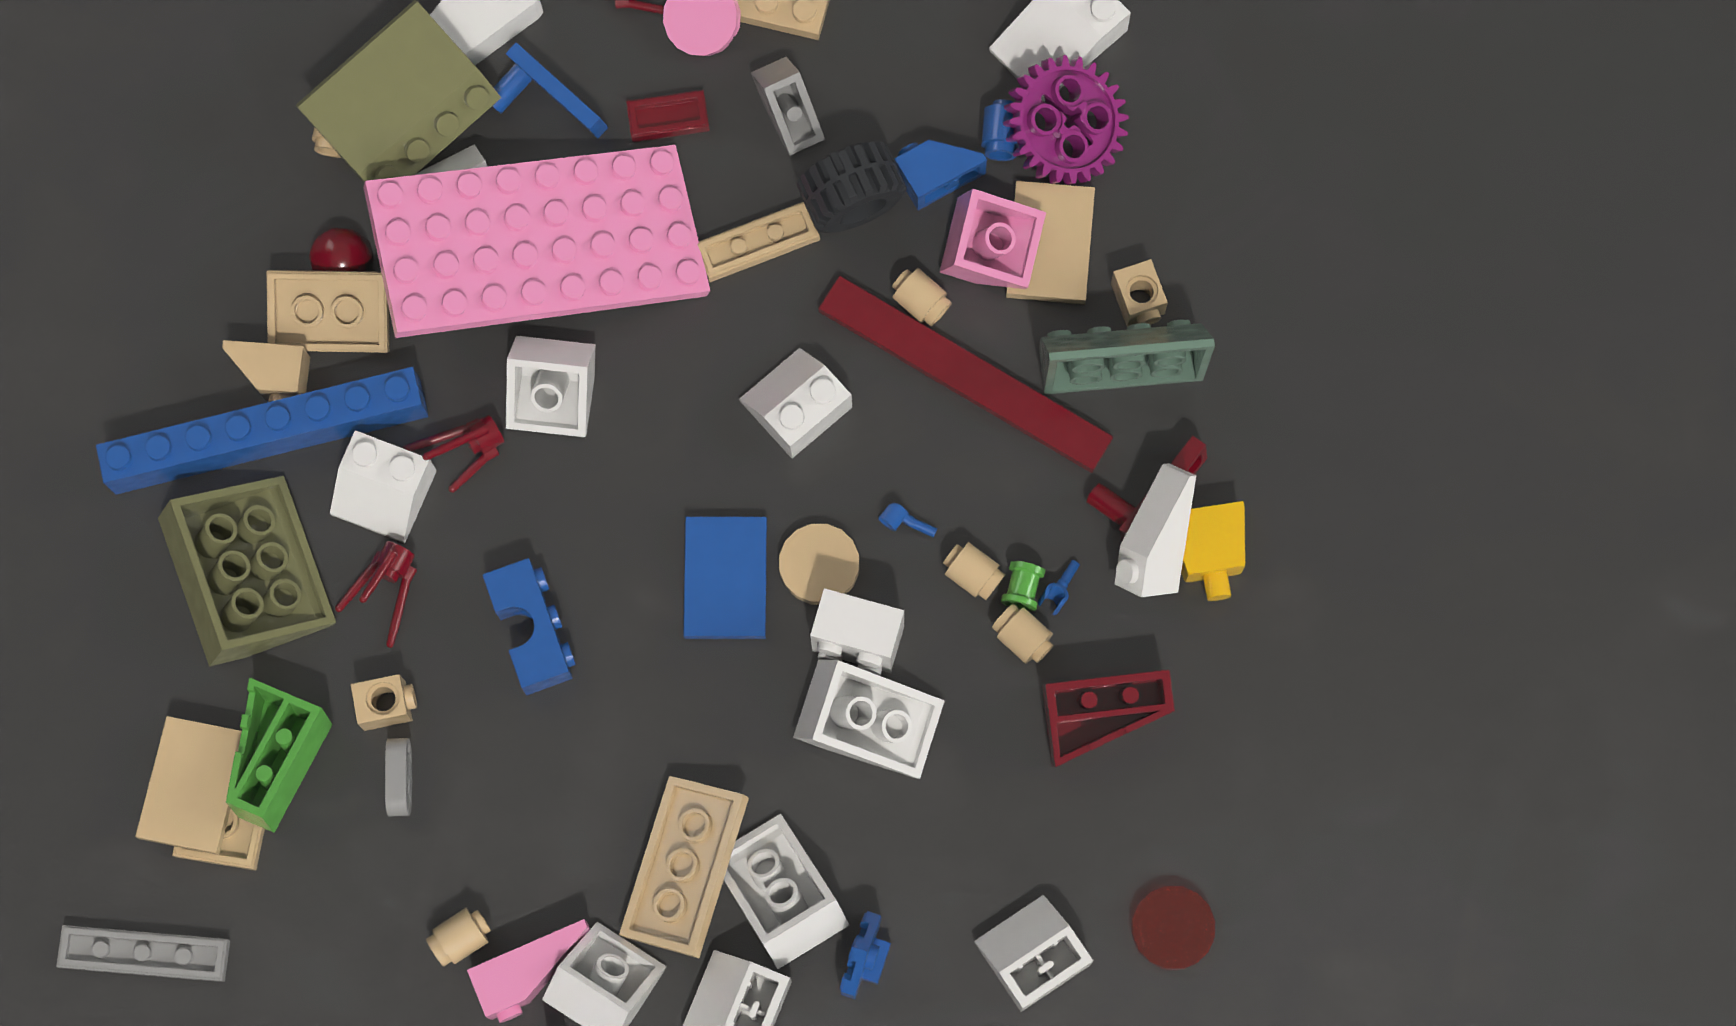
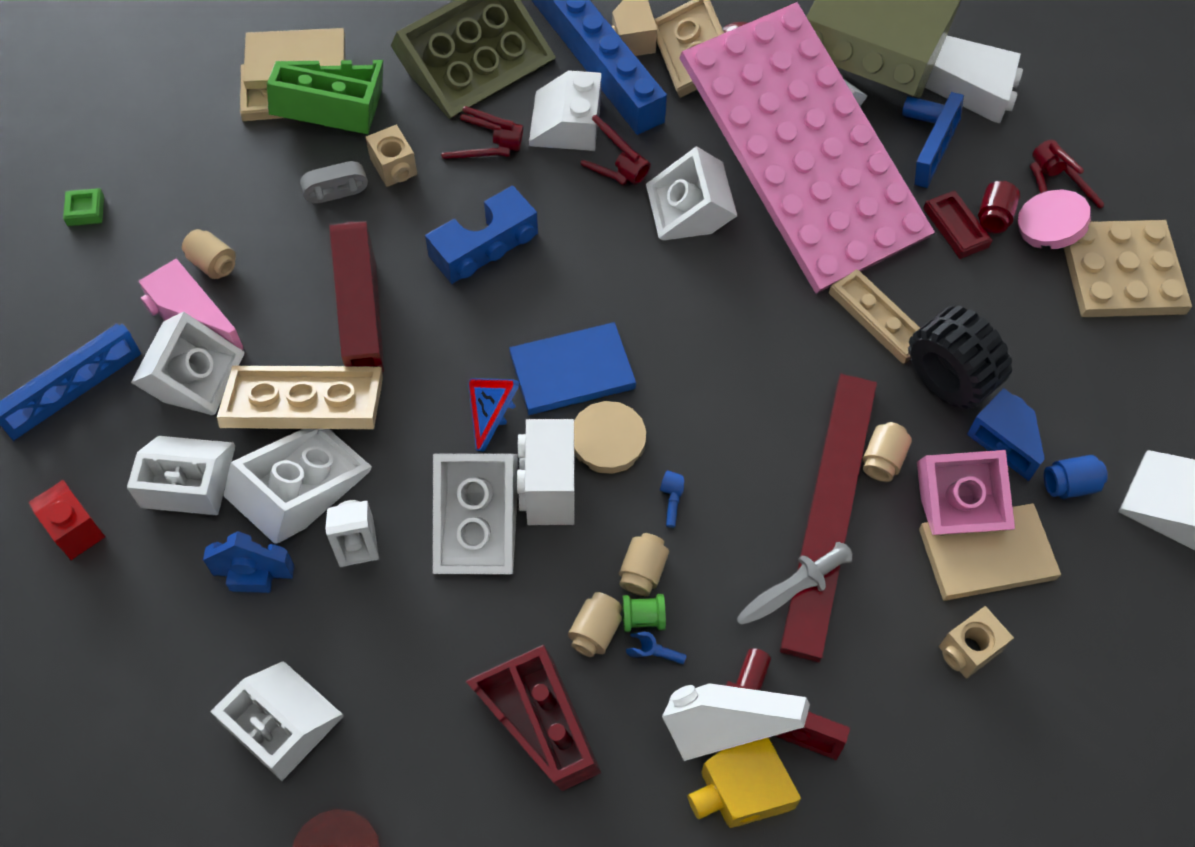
camera: 70 degrees right, 15 degrees down
(143, 953) = (163, 71): light grey tile -> none
(580, 780) = (356, 295): none -> dark red slope
(665, 65) = (998, 206): none -> dark red brick
(752, 673) = (488, 405): none -> piece
(788, 105) = (1013, 298): light grey slope -> none
(797, 401) = (746, 381): white slope -> none
(857, 843) = (352, 532): none -> white slope
(1033, 420) = (807, 576): none -> light grey sword
(1086, 94) = (1148, 539): magenta gear -> none
(1125, 357) = (902, 640): sand green slope -> none

